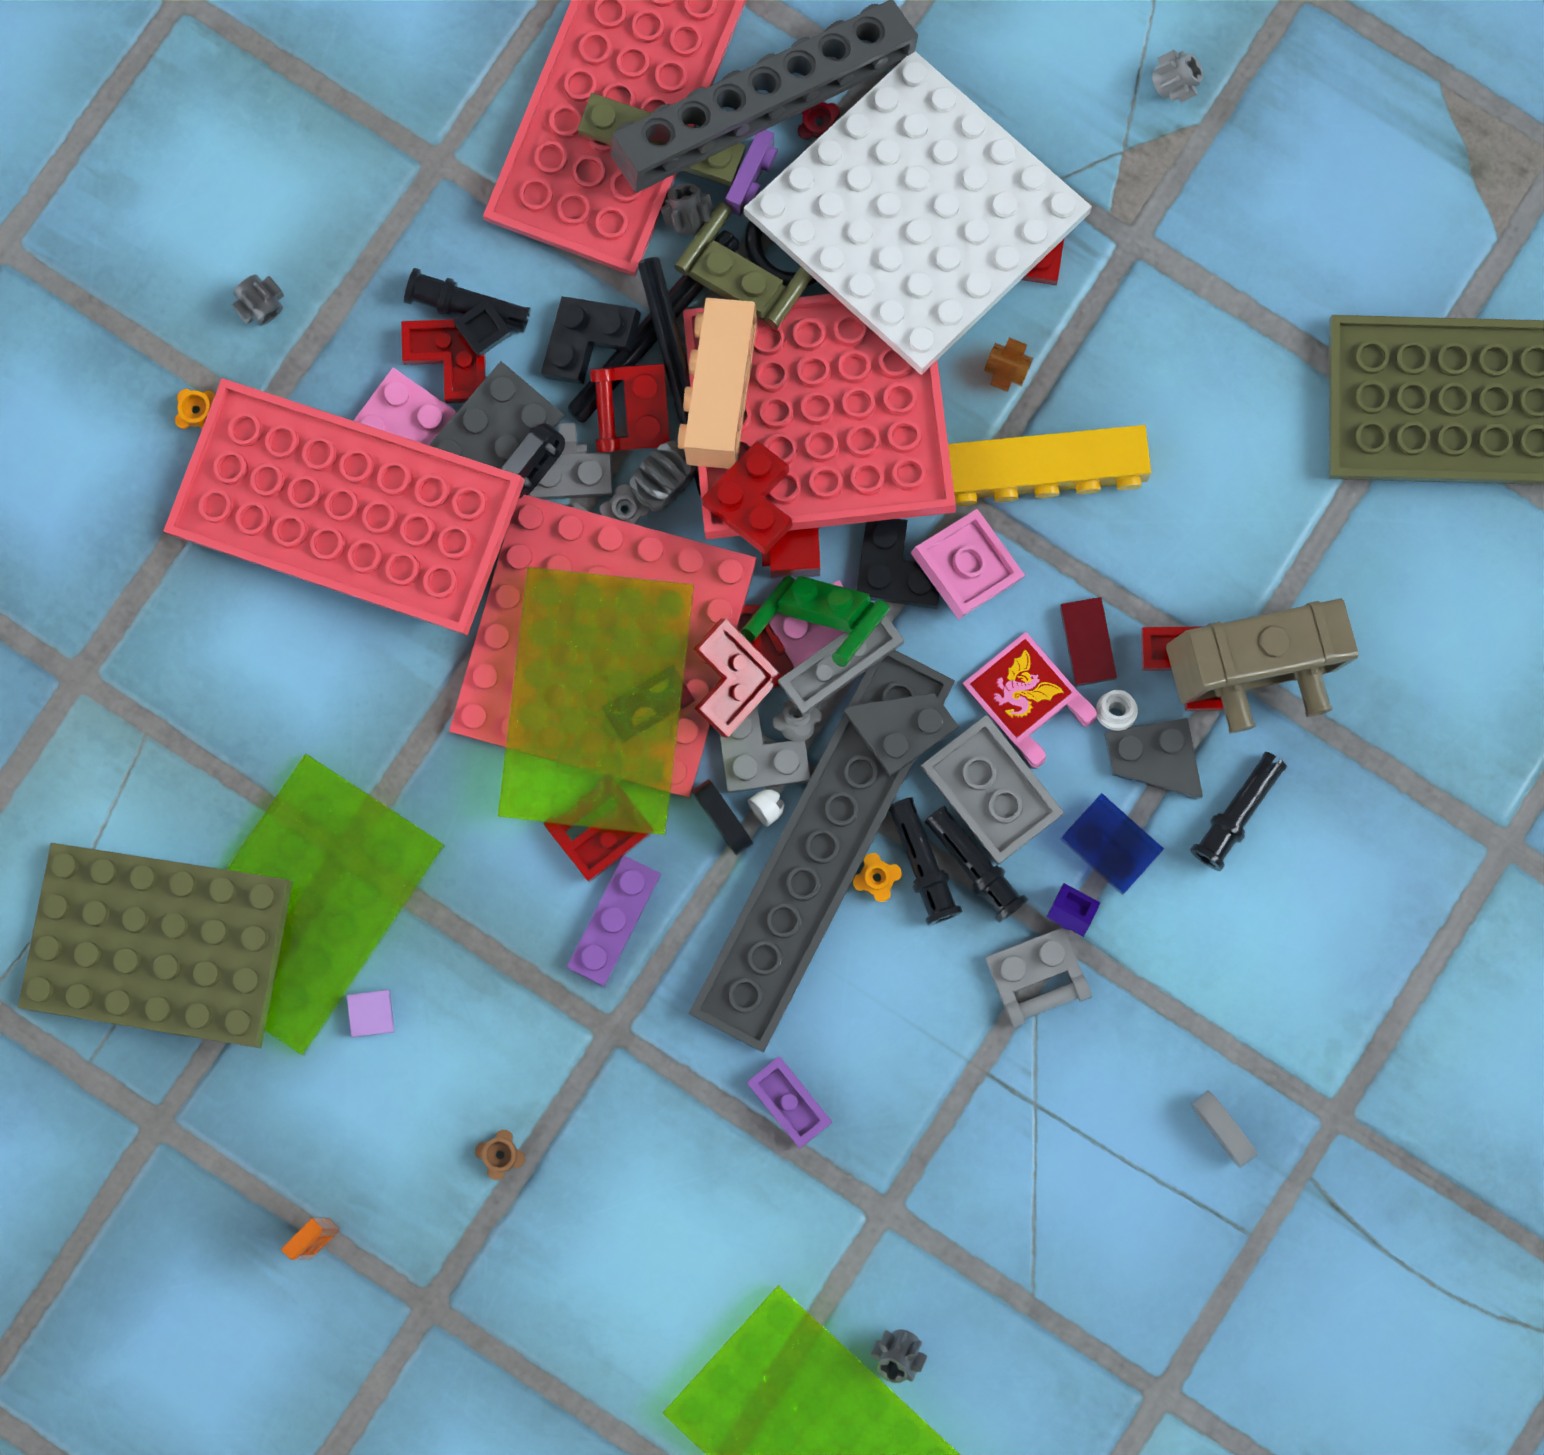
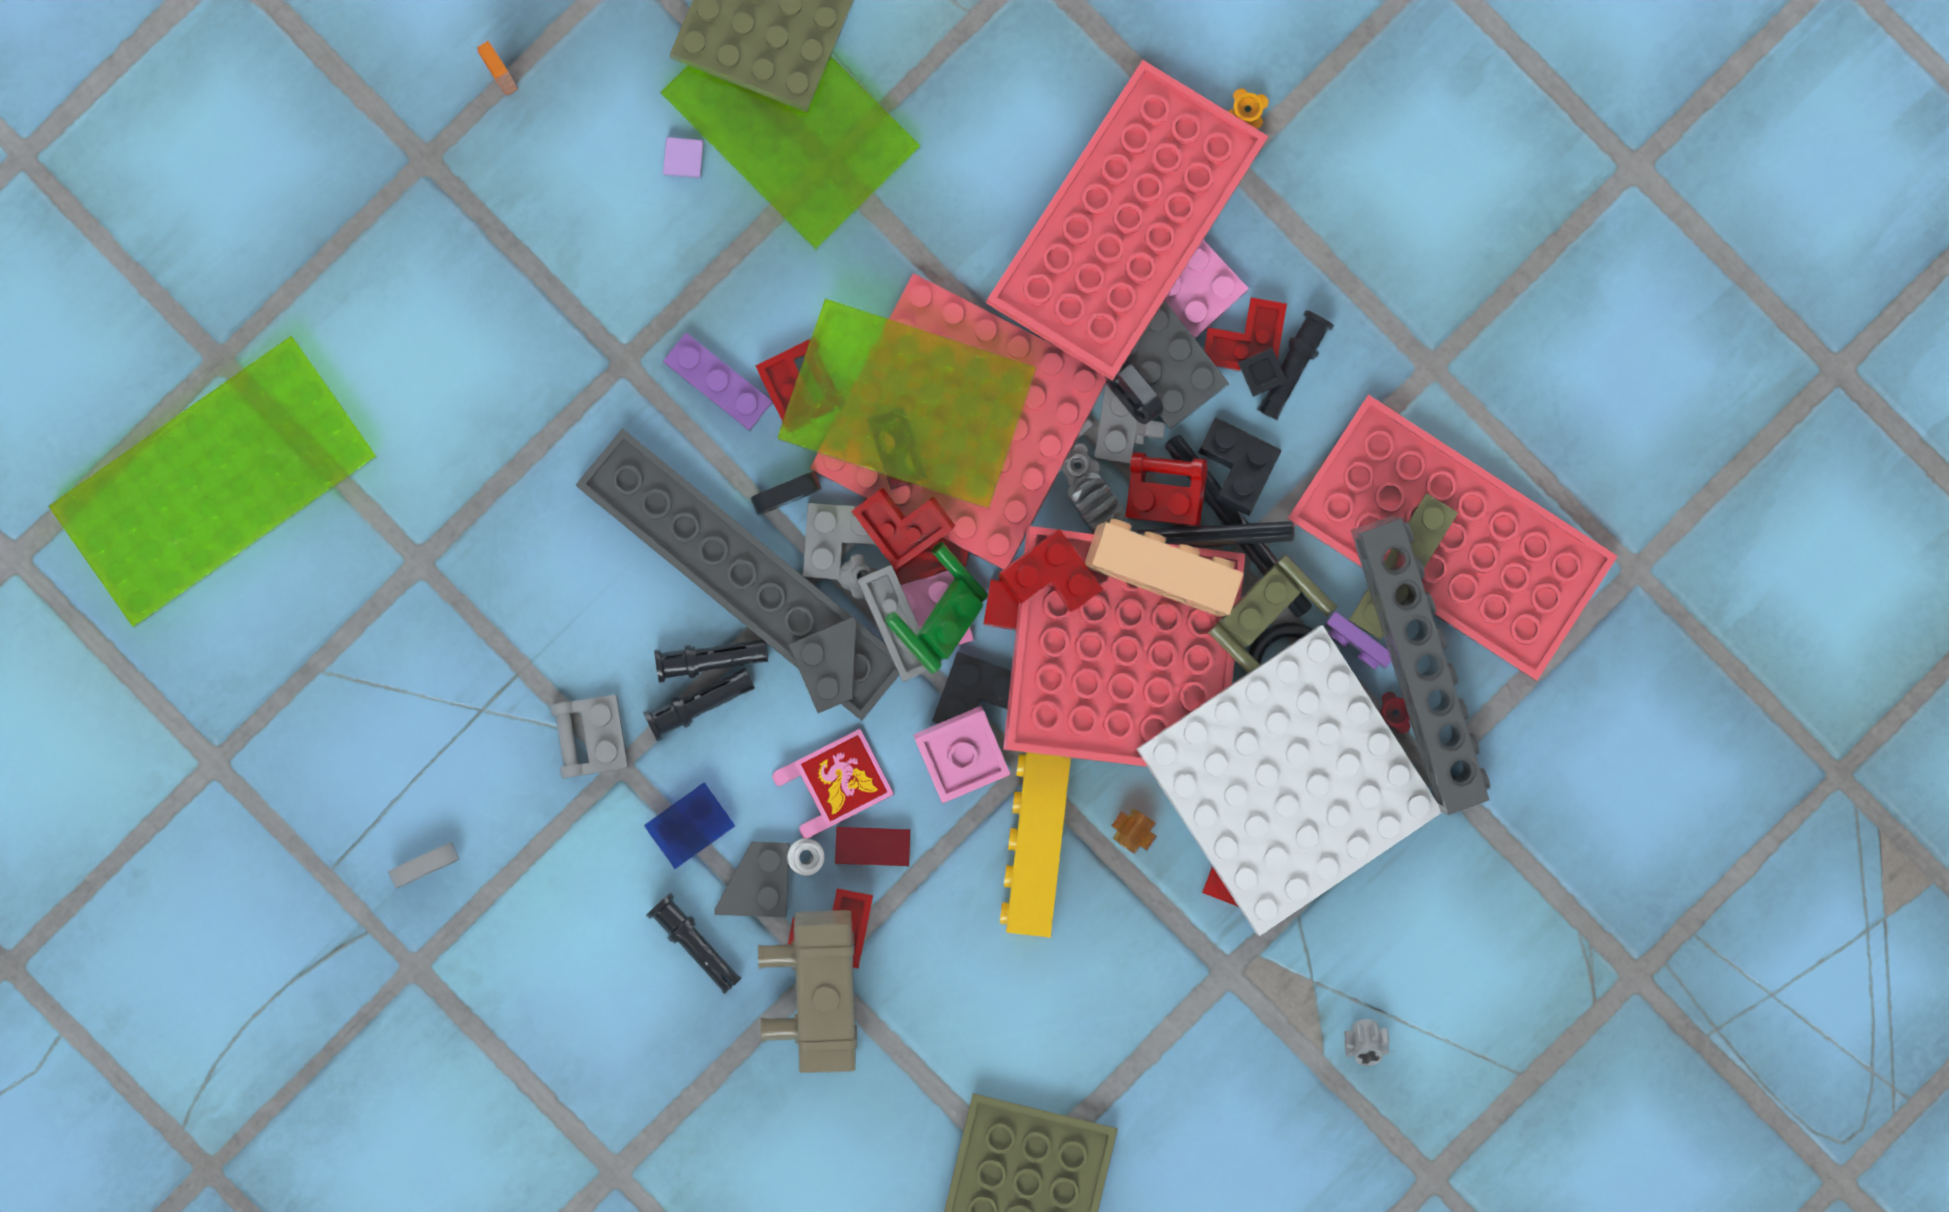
camera: 105 degrees right, 5 degrees up
(258, 300) = (1333, 181): flat silver gear -> none
(511, 1158) = (548, 247): medium nougat plate -> none
(687, 209) = (1336, 576): flat silver gear -> none
(766, 806) = (788, 534): white hinge -> none
(789, 1102) = (528, 498): medium lavender plate -> none
(865, 880) = (707, 626): light orange plate -> none
(898, 1356) = (294, 544): flat silver gear -> none
(992, 789) = (759, 732): light grey plate -> none
(1073, 909) = (639, 778): dark purple plate -> none

